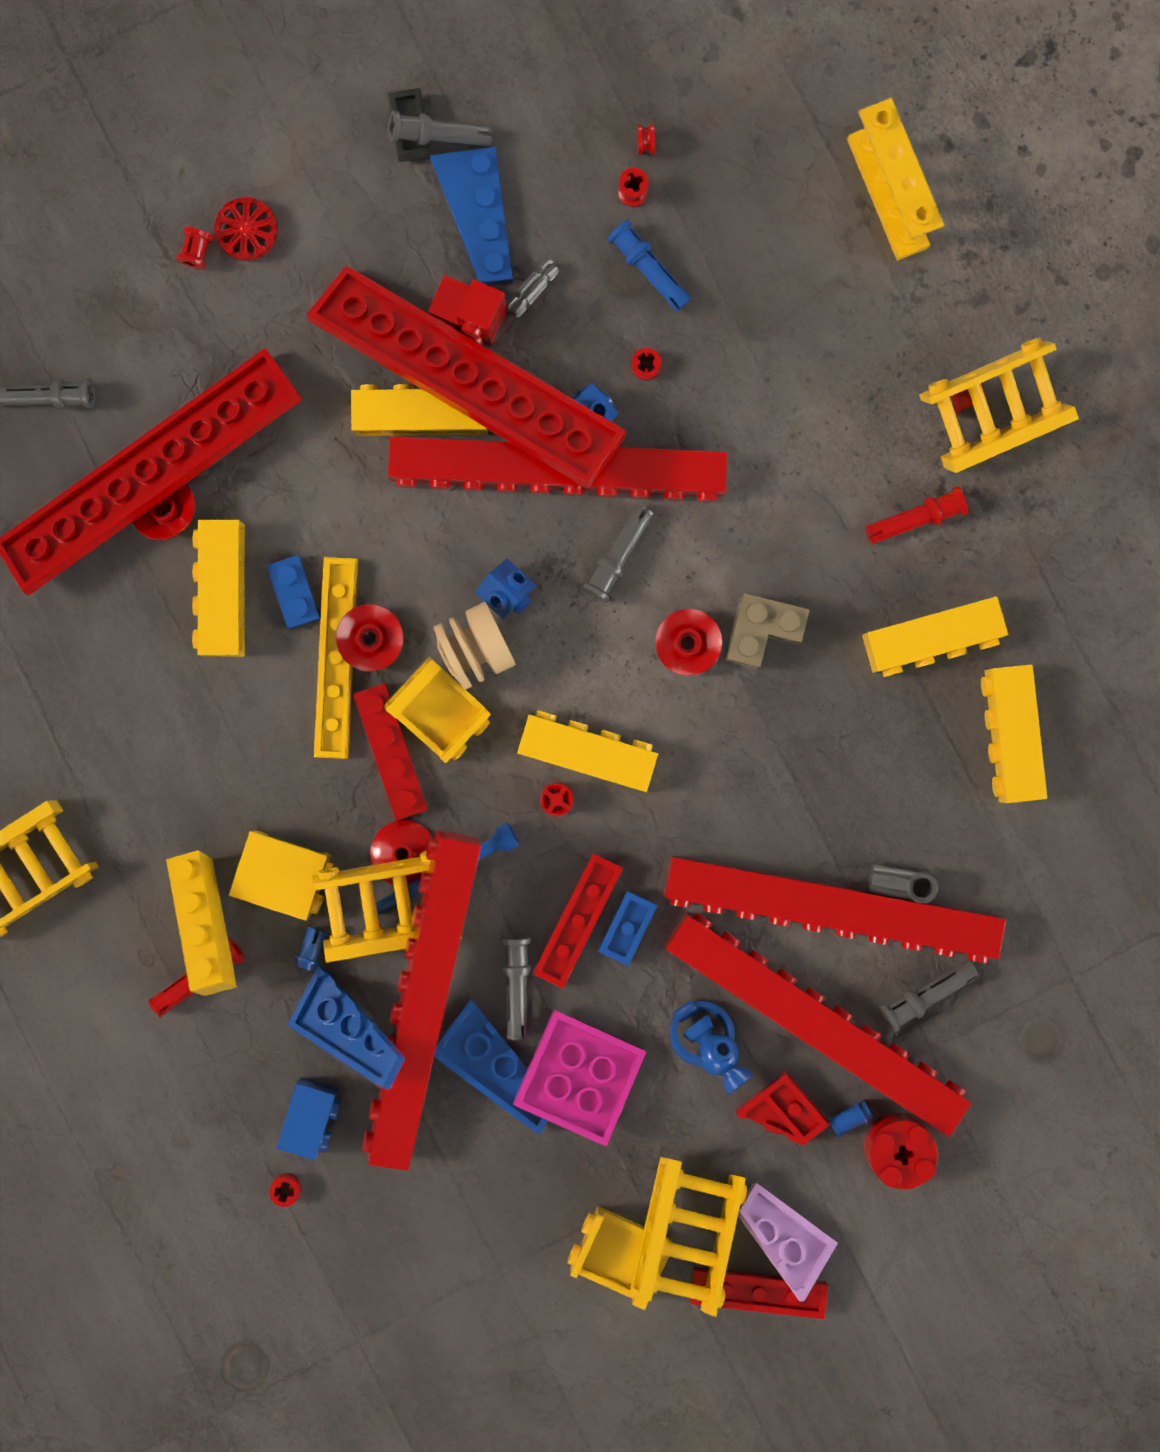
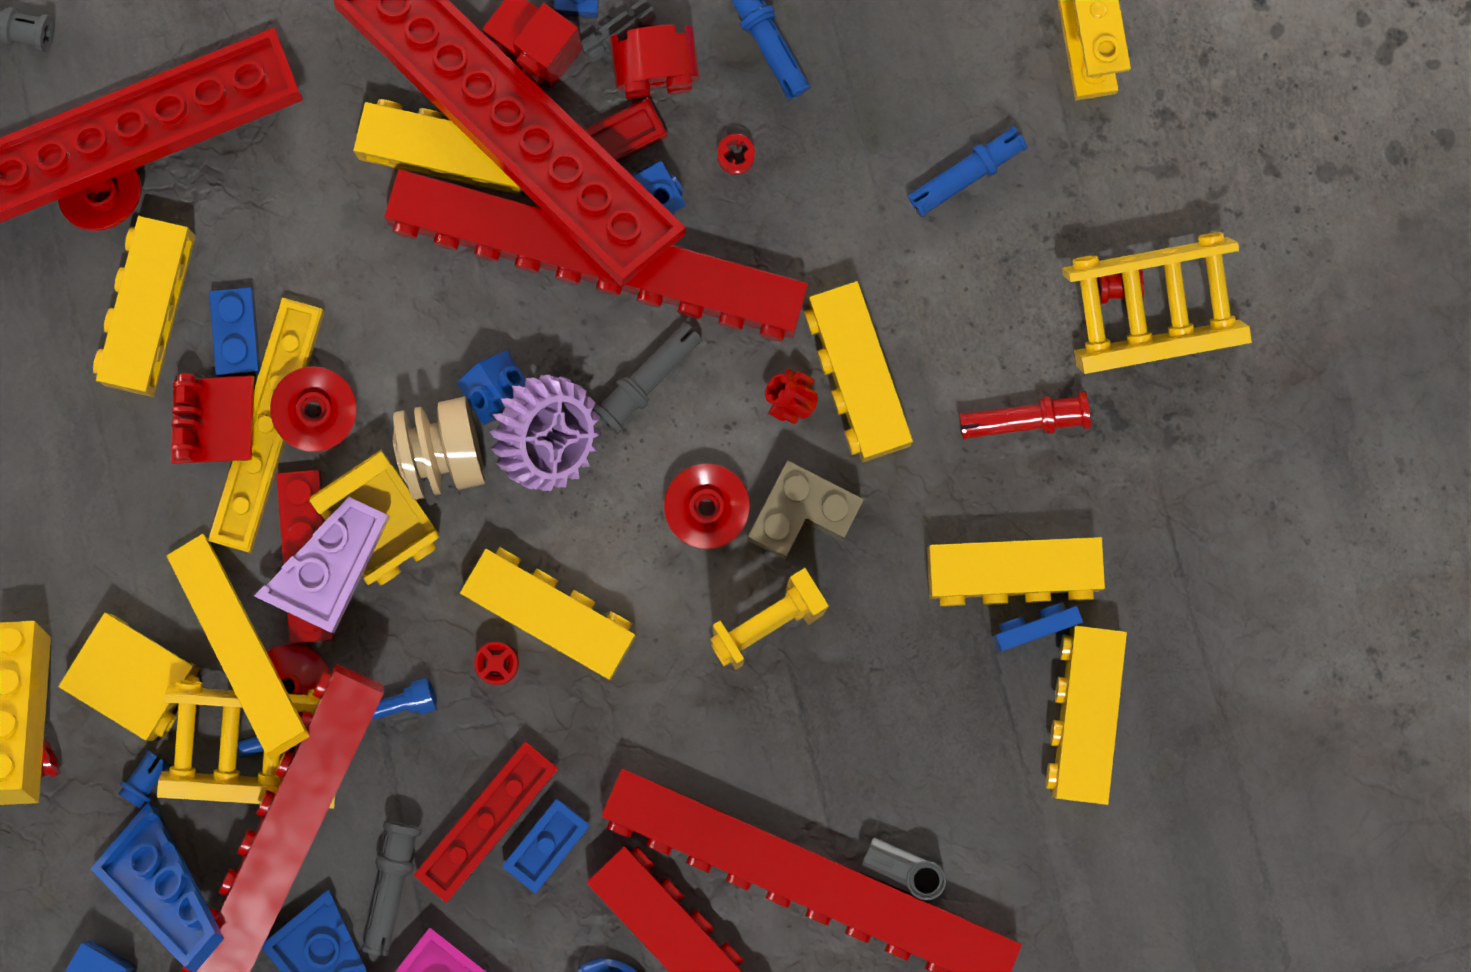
camera: 15 degrees right, 5 degrees down
(294, 663) = (212, 419): none -> red hinge
(359, 834) = (238, 647): none -> yellow tile
(411, 759) = (328, 567): none -> lavender wing
(553, 614) = (537, 413): none -> lavender gear
(559, 364) = (629, 130): none -> red tile
(568, 304) = (654, 60): none -> red brick
(733, 542) = (791, 396): none -> red gear
(780, 511) = (859, 372): none -> yellow brick
(781, 698) = (800, 602): none -> yellow fence
(837, 325) = (981, 162): none -> blue pin
(949, 683) = (1053, 620): none -> blue plate

